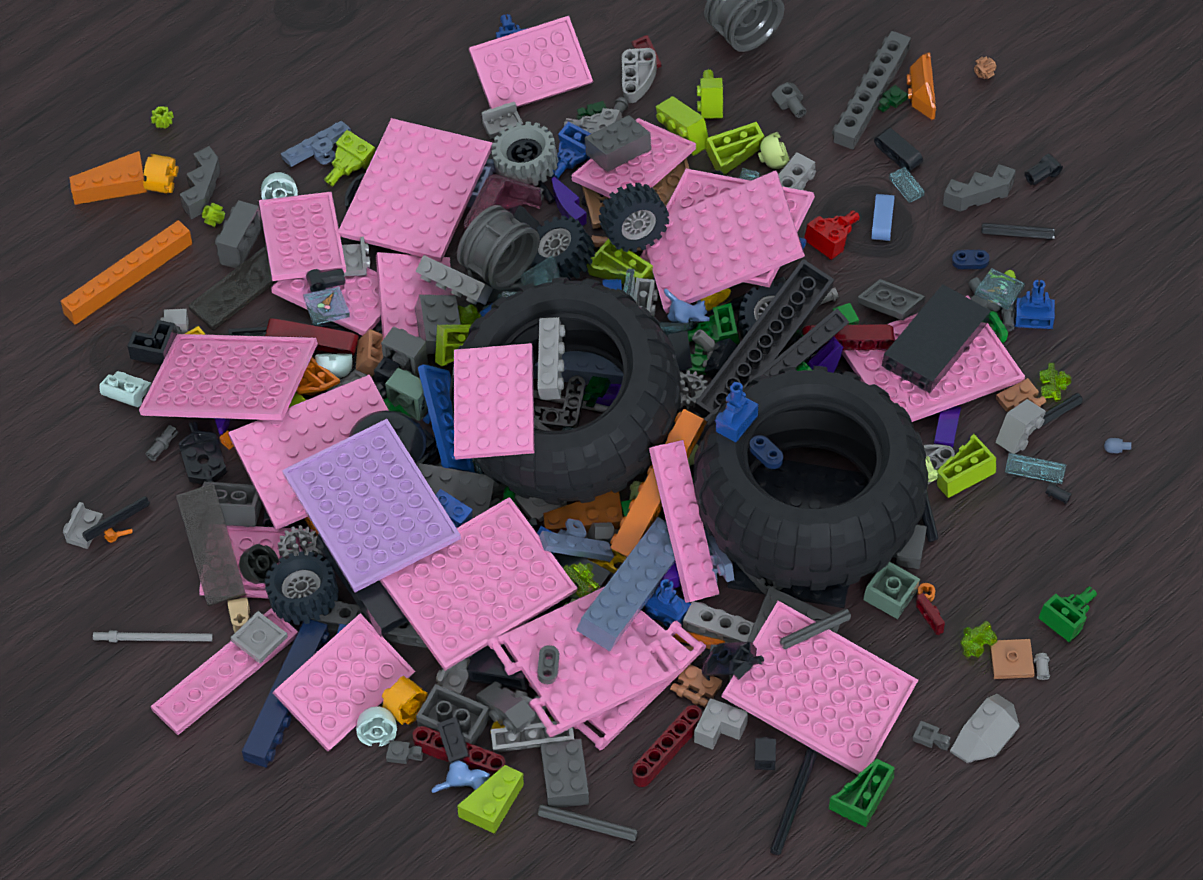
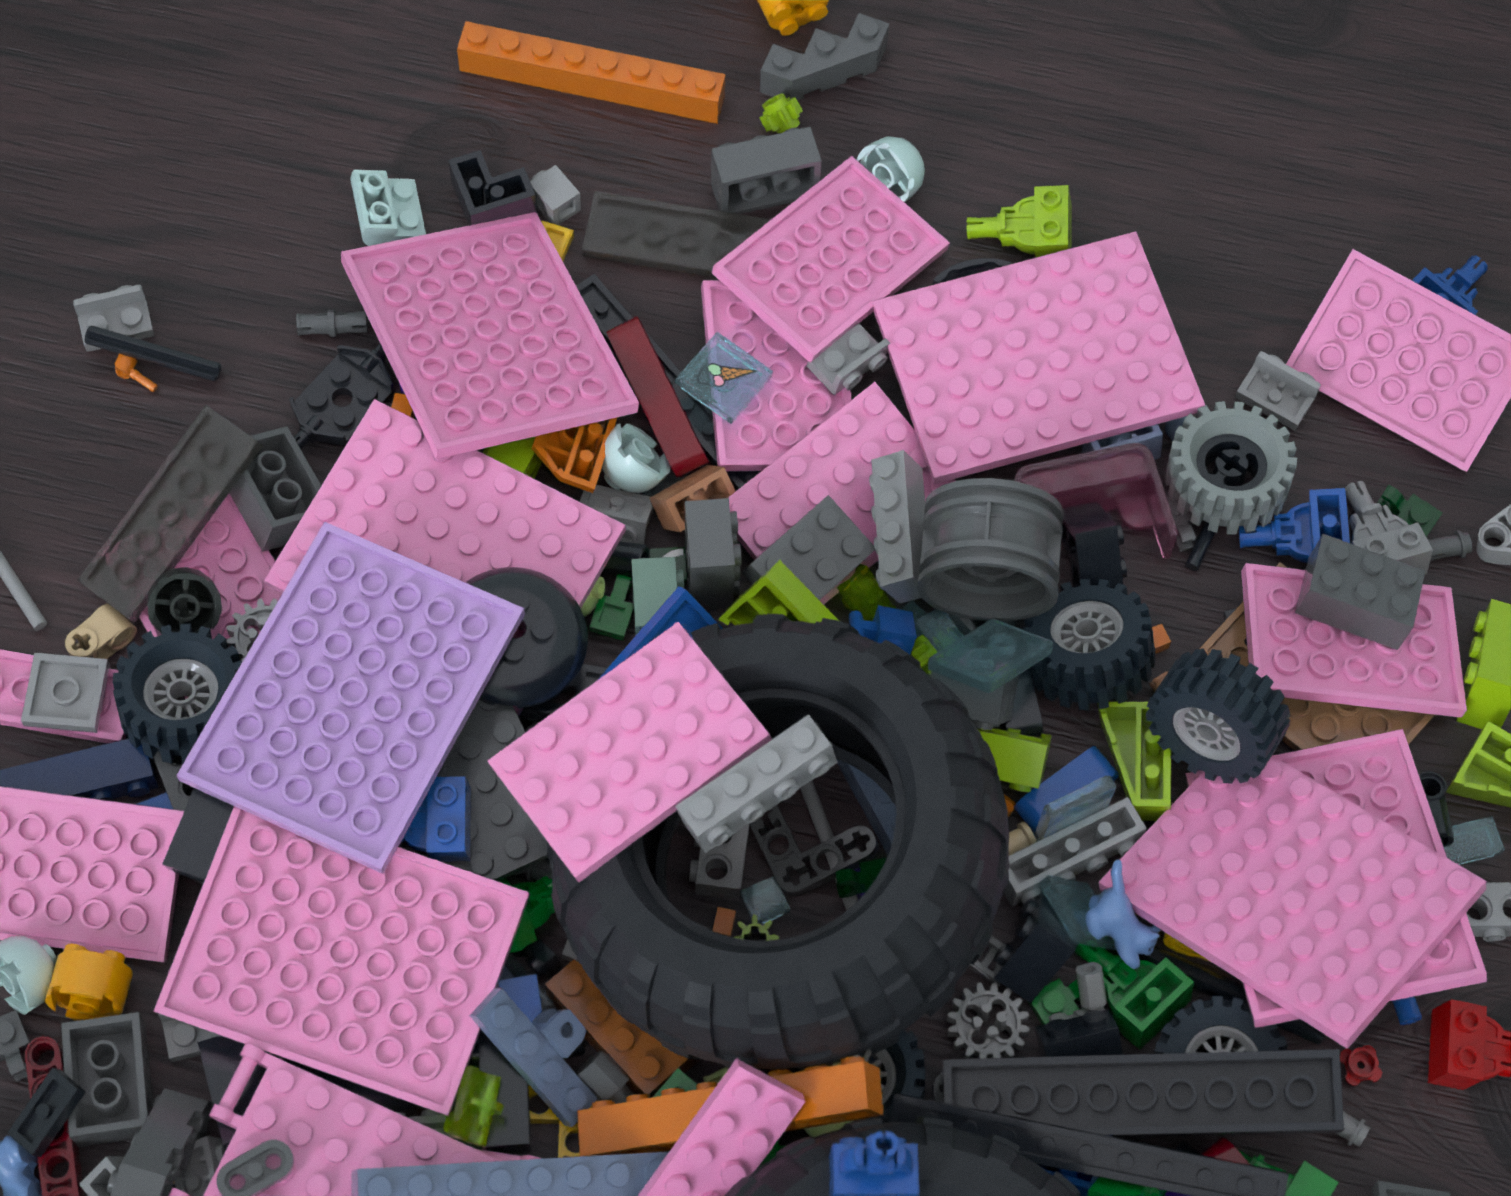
camera: 50 degrees right, 10 degrees up
(317, 145) = (1021, 166): sand blue plate -> none
(321, 280) = (762, 337): black piece -> none
(385, 370) = (669, 541): black brick -> none
(568, 202) = (1199, 596): dark purple slope -> none

